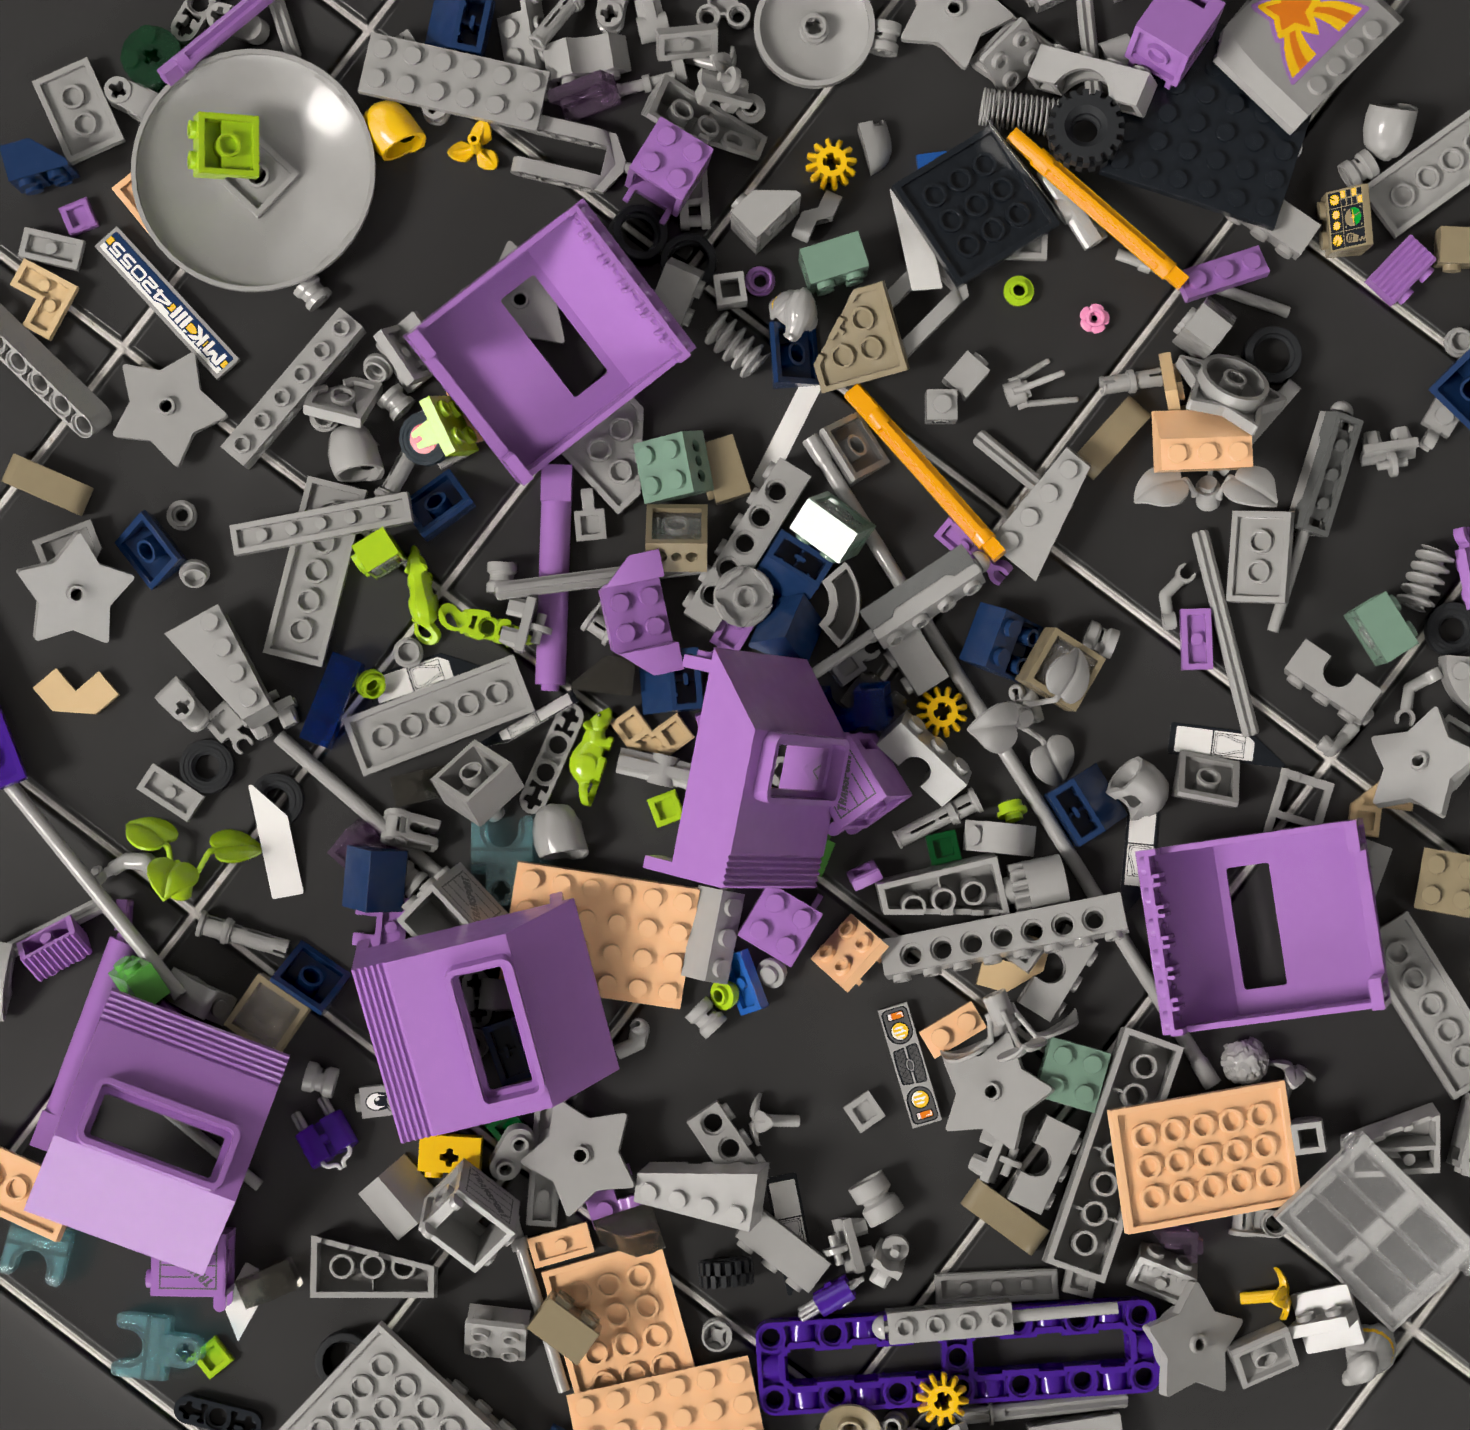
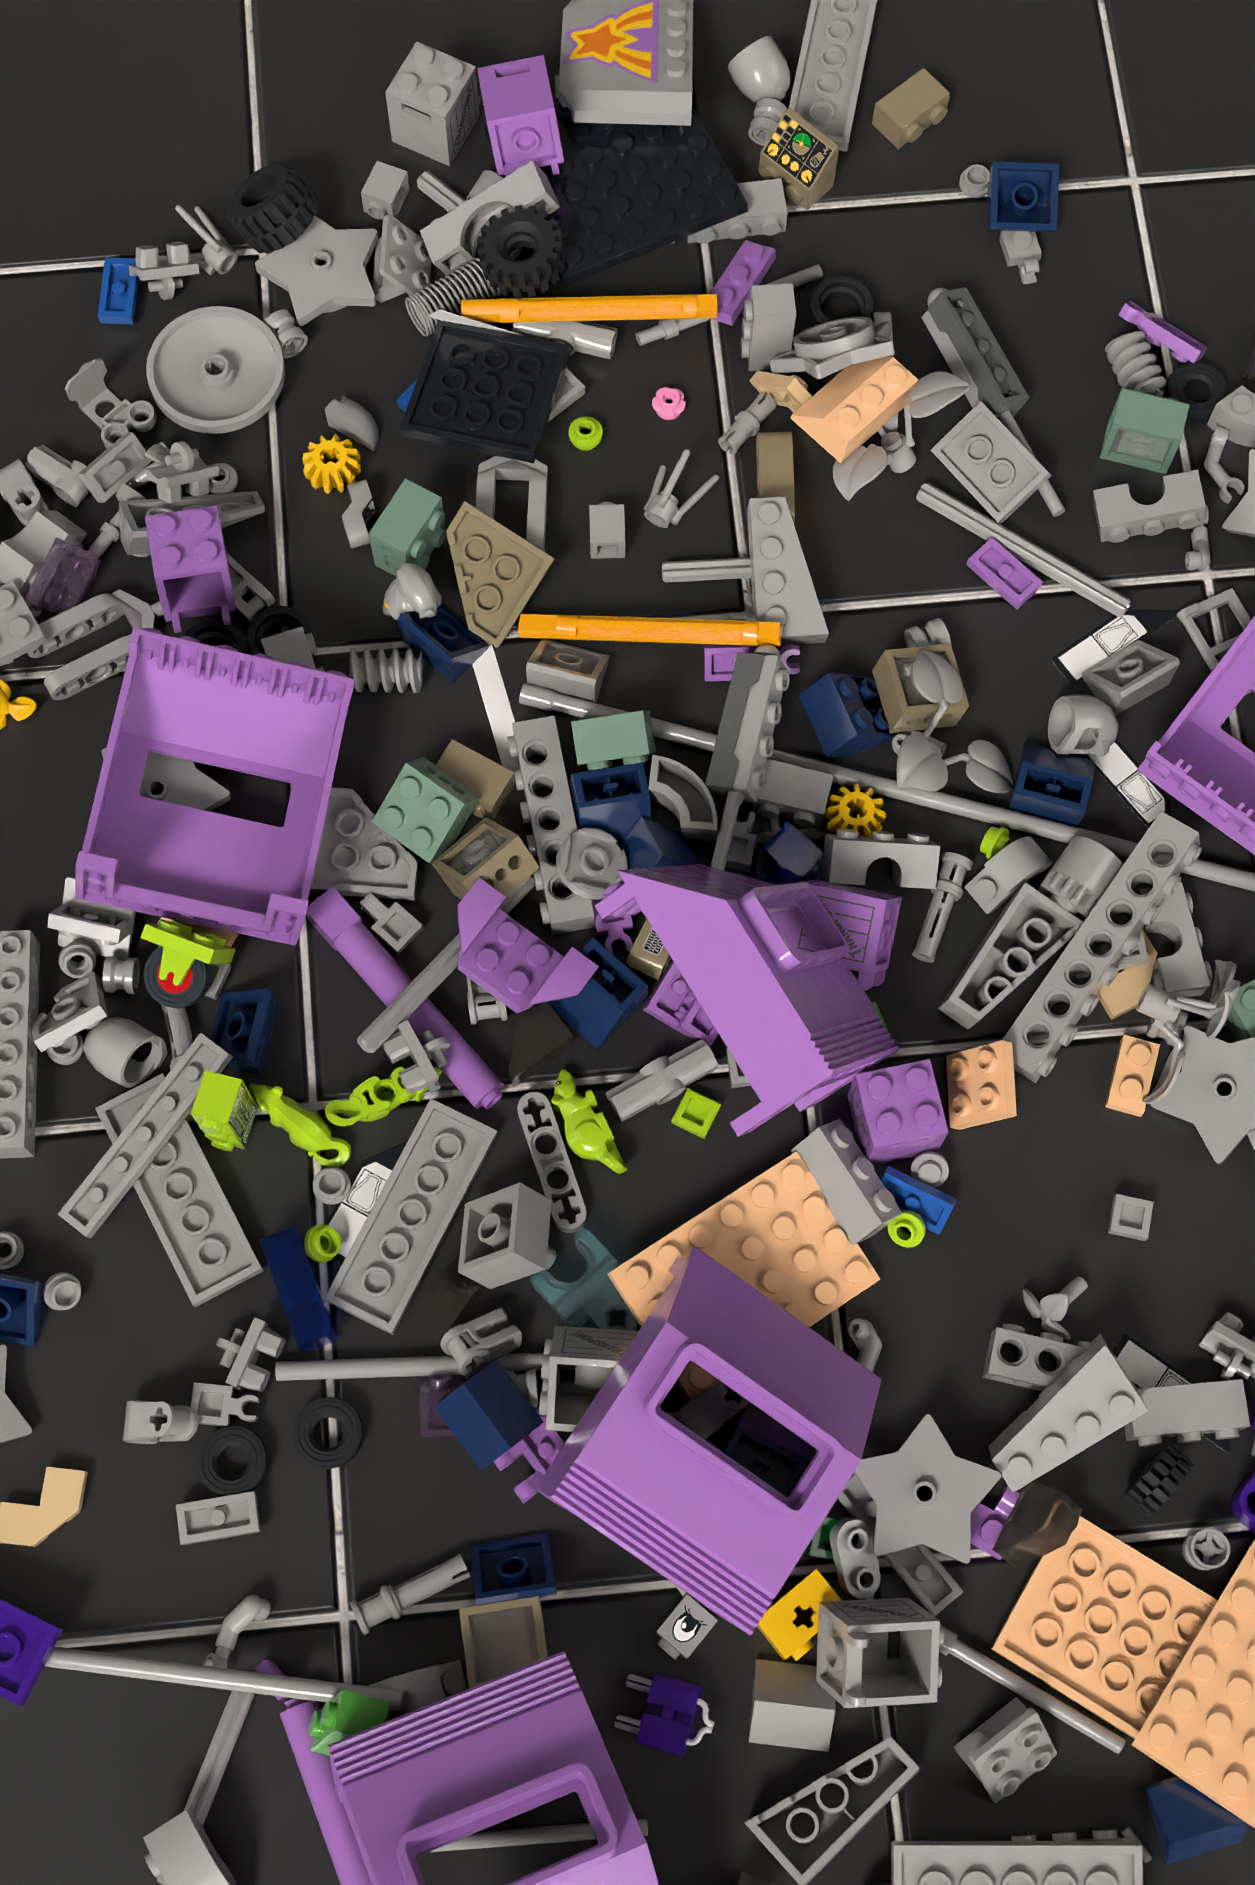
camera: 40 degrees left, 15 degrees down
(54, 948) = (233, 1777): medium lavender brick -> none
(177, 878) = (294, 1582): lime plant -> none
(221, 658) = (156, 1343): light grey wedge -> none
(276, 846) = (367, 1476): white sticker -> none
(320, 1079) = (611, 1661): light grey wheel -> none
(499, 572) = (347, 1038): light grey wheel -> none
(532, 719) = (503, 1139): sticker -> none
(558, 833) = (616, 1216): light grey piece -> none
(561, 1244) = (984, 1604): light nougat plate -> none
(565, 1326) = (1068, 1673): dark tan piece -> none
(663, 739) = (605, 1070): tan tile -> none
(706, 1017) = (911, 1264): light grey wheel -> none
(730, 291) = (339, 629): light grey brick -> none
(760, 271) = (354, 597): medium lavender plate -> none
(763, 215) = (310, 539): light grey slope -> none
(864, 875) = (926, 1010): medium lavender tile -> none
(874, 1195) = (1226, 1285): light grey wheel -> none
(909, 1065) = (1127, 1141): tile -> none
(919, 257) = (466, 465): white sticker -> none
(941, 406) = (610, 571): light grey brick -> none
(943, 847) = (969, 926): dark green plate -> none
(1168, 616) = (964, 577): light grey arm -> none
(1388, 454) = (1010, 302): light grey hips -> none
(1400, 271) = (877, 166): medium lavender brick -> none

